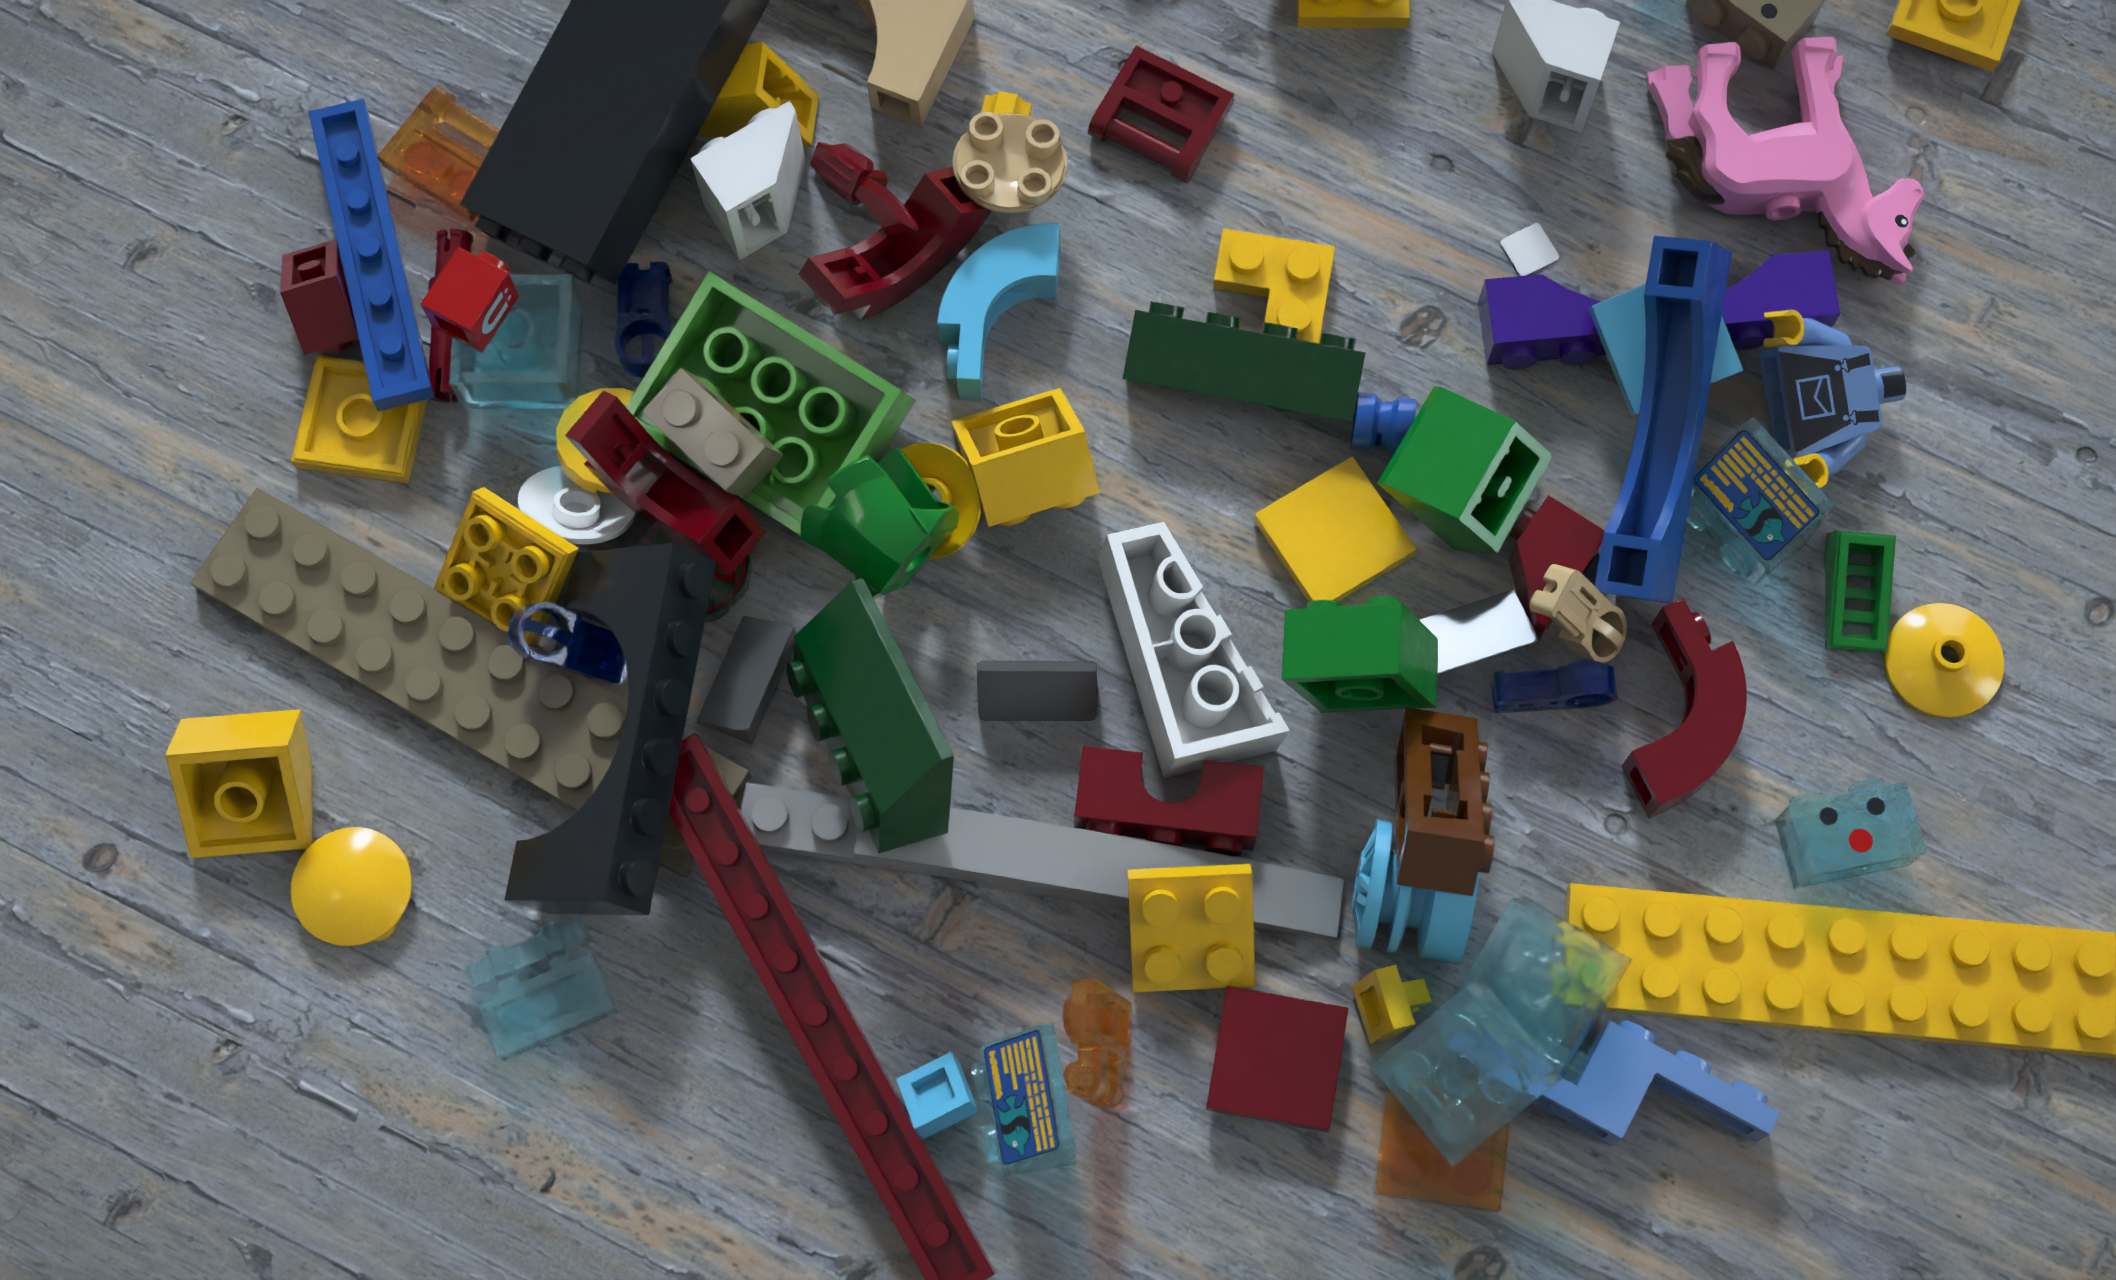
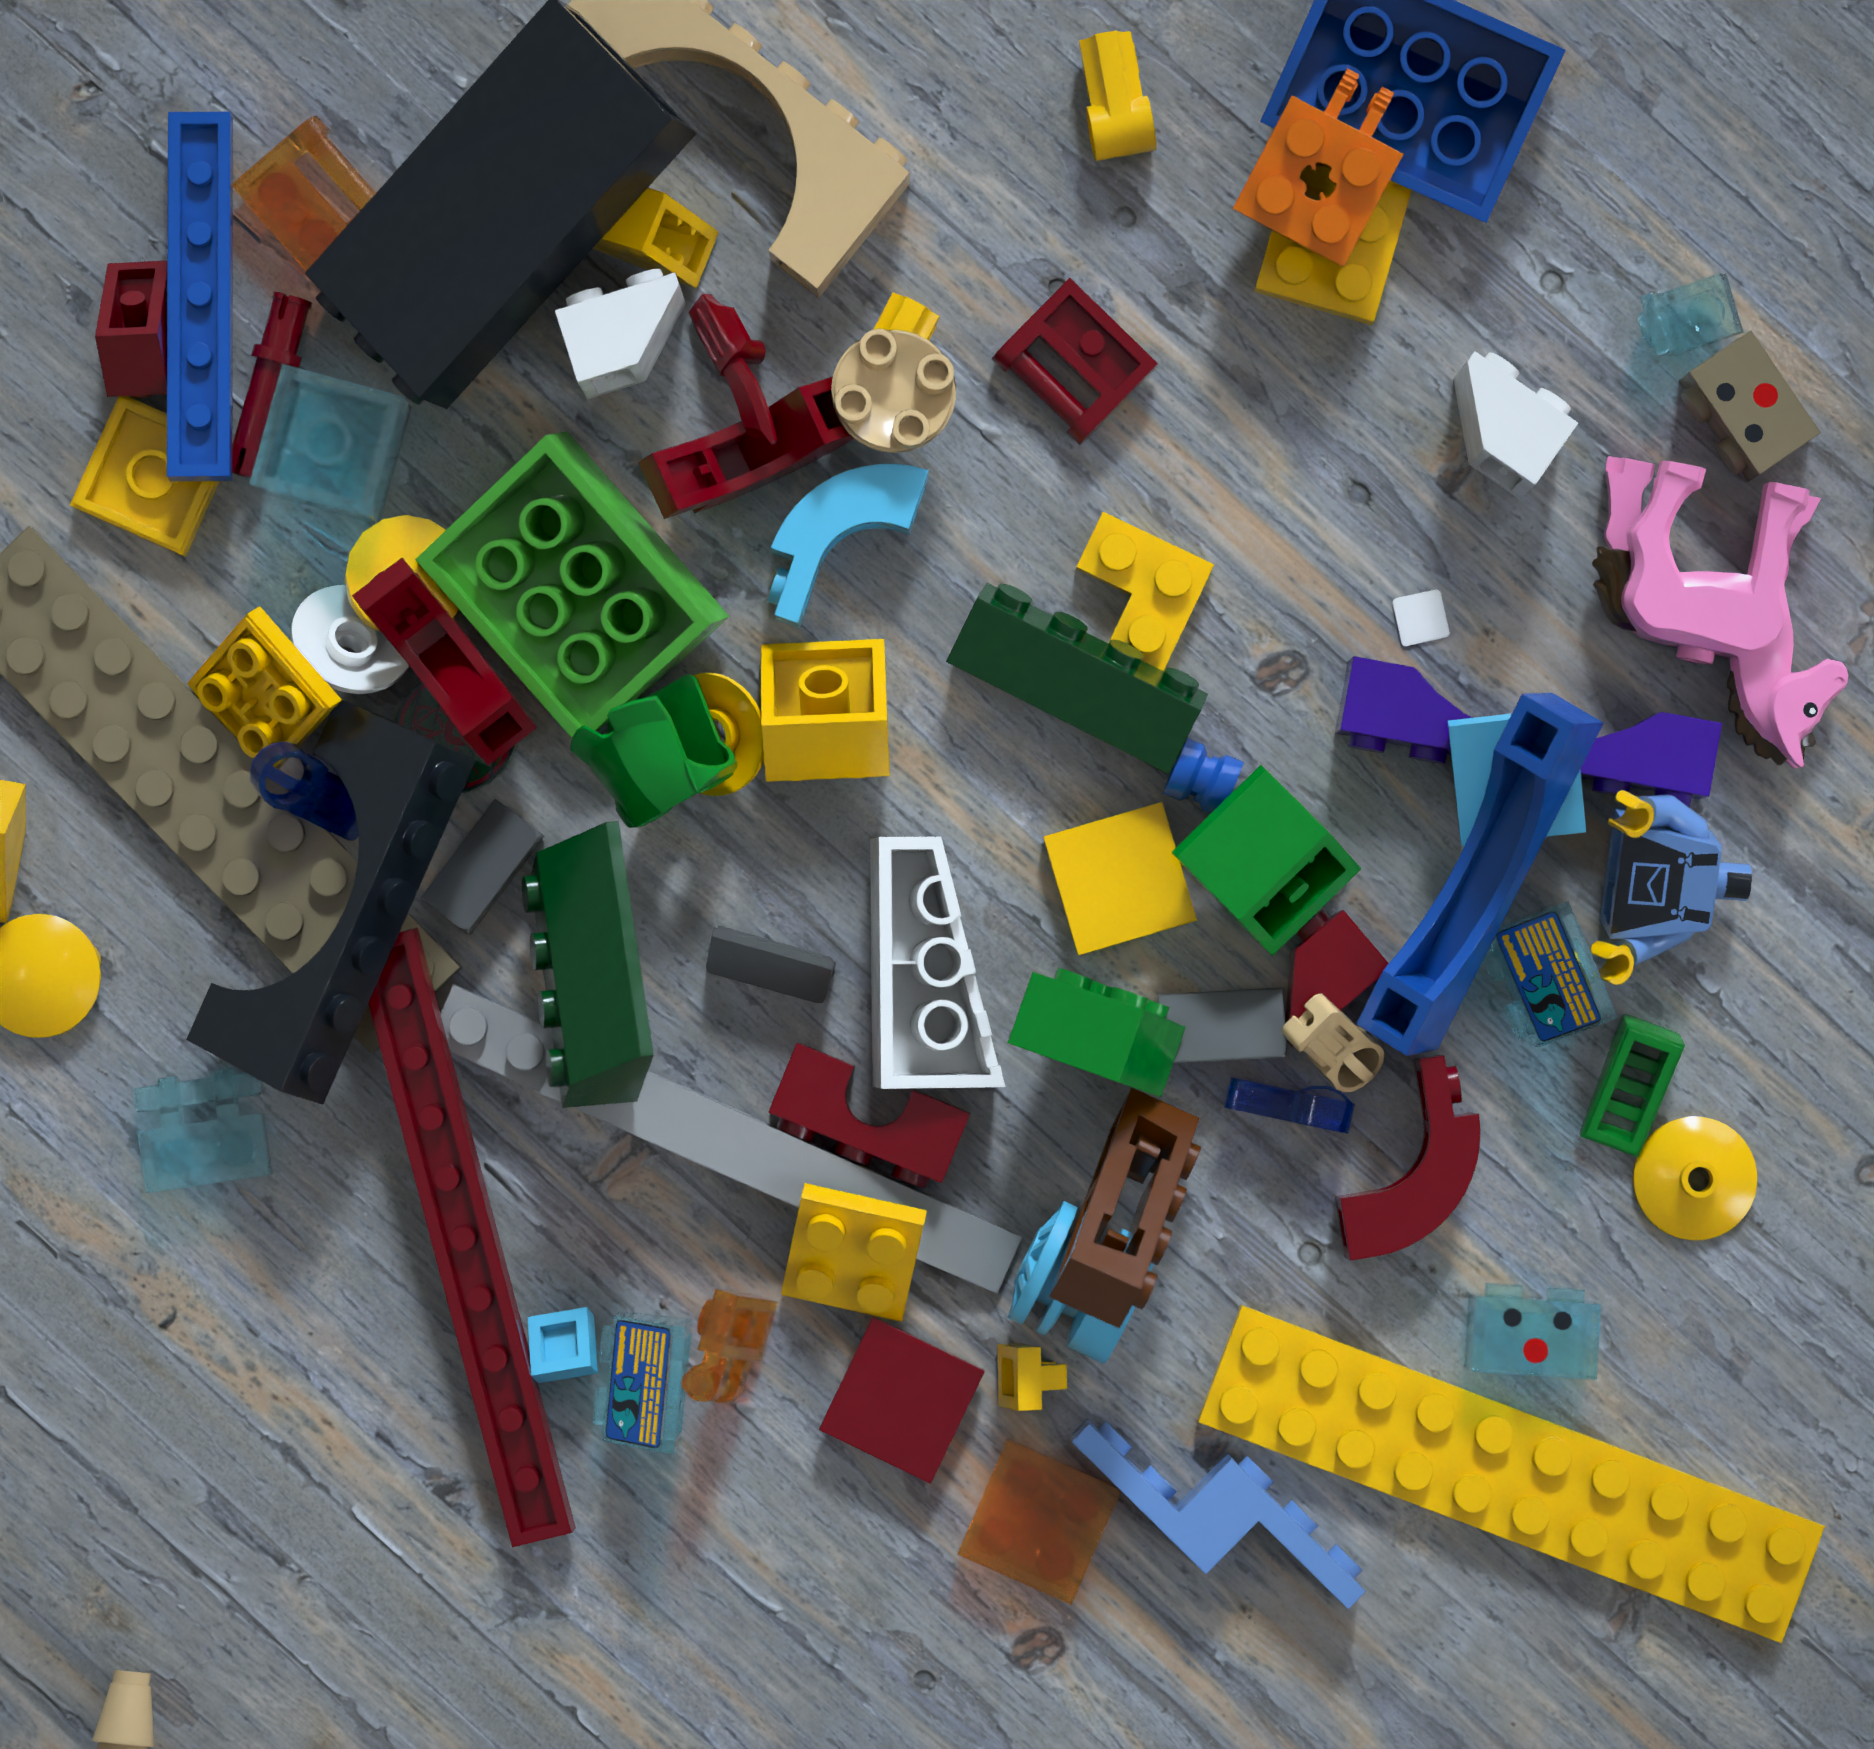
camera: 15 degrees right, 15 degrees up
(471, 298) = (291, 404): red brick -> none
(643, 312) = (471, 435): clear blue piece -> none
(712, 433) = (506, 617): dark tan brick -> none
(1466, 1072) = (1072, 1478): clear light blue brick -> none
(1549, 977) = (1175, 1405): clear light blue brick -> none

